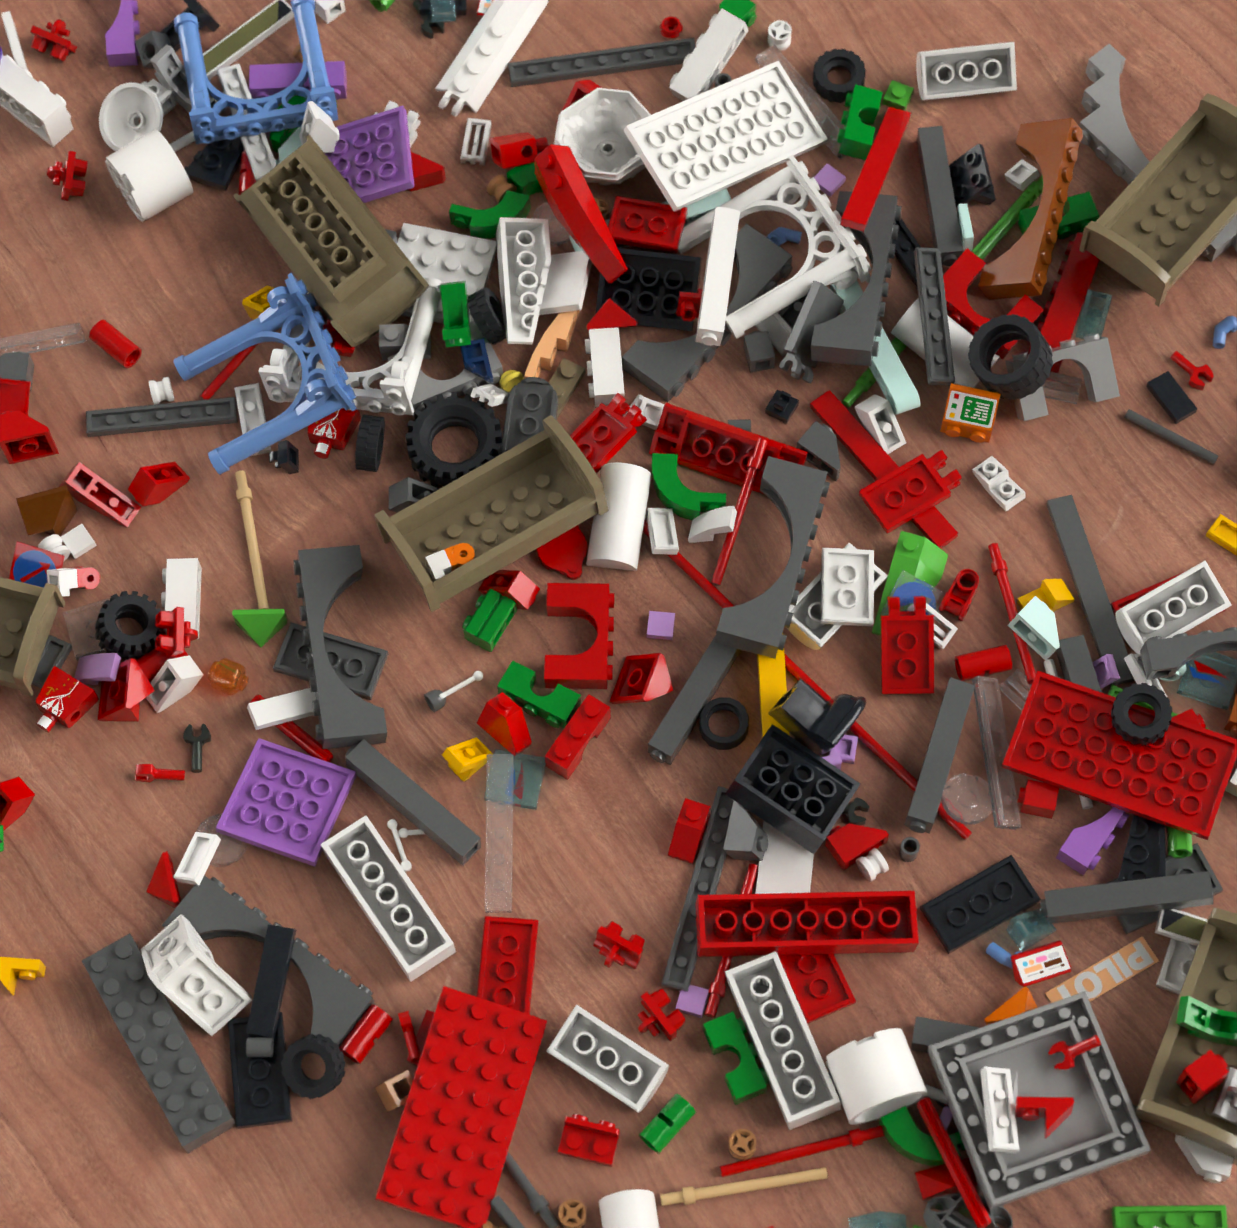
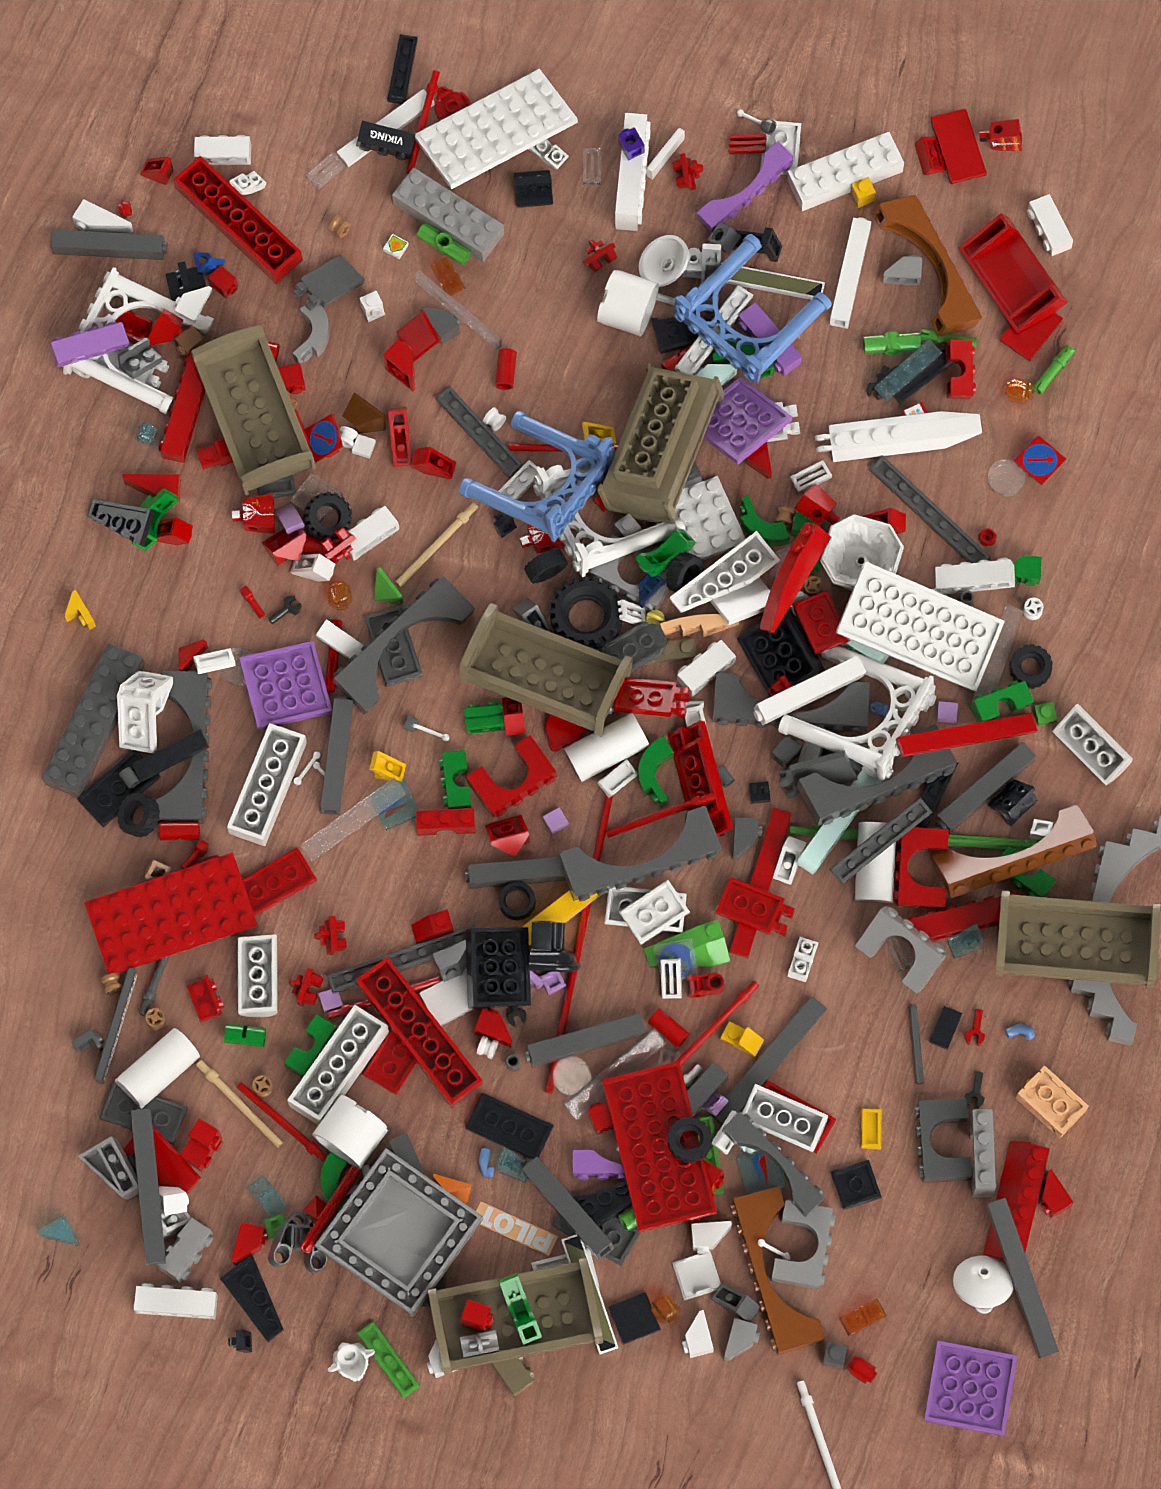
camera: 55 degrees right, 5 degrees up
(73, 577) = (332, 460): leg -> none
(319, 127) = (735, 379): white slope -> none
(448, 560) = (496, 667): leg -> none
(505, 723) = (423, 775): red slope -> none
(611, 316) = (742, 647): red slope -> none
(712, 522) = (642, 805): white slope -> none
(907, 649) = (642, 975): red tile -> none
(965, 227) = (969, 820): light aqua tile -> none
(970, 413) = (833, 909): slope -> none
(996, 334) = (868, 890): black tyre -> none
(999, 1110) = (375, 1212): white tile -> none
(1037, 627) = (713, 1042): light aqua slope -> none
(1040, 964) = (493, 1185): slope -> none
(1052, 1109) = (393, 1242): red slope -> none
(1072, 1051) = (438, 1231): red bar -> none

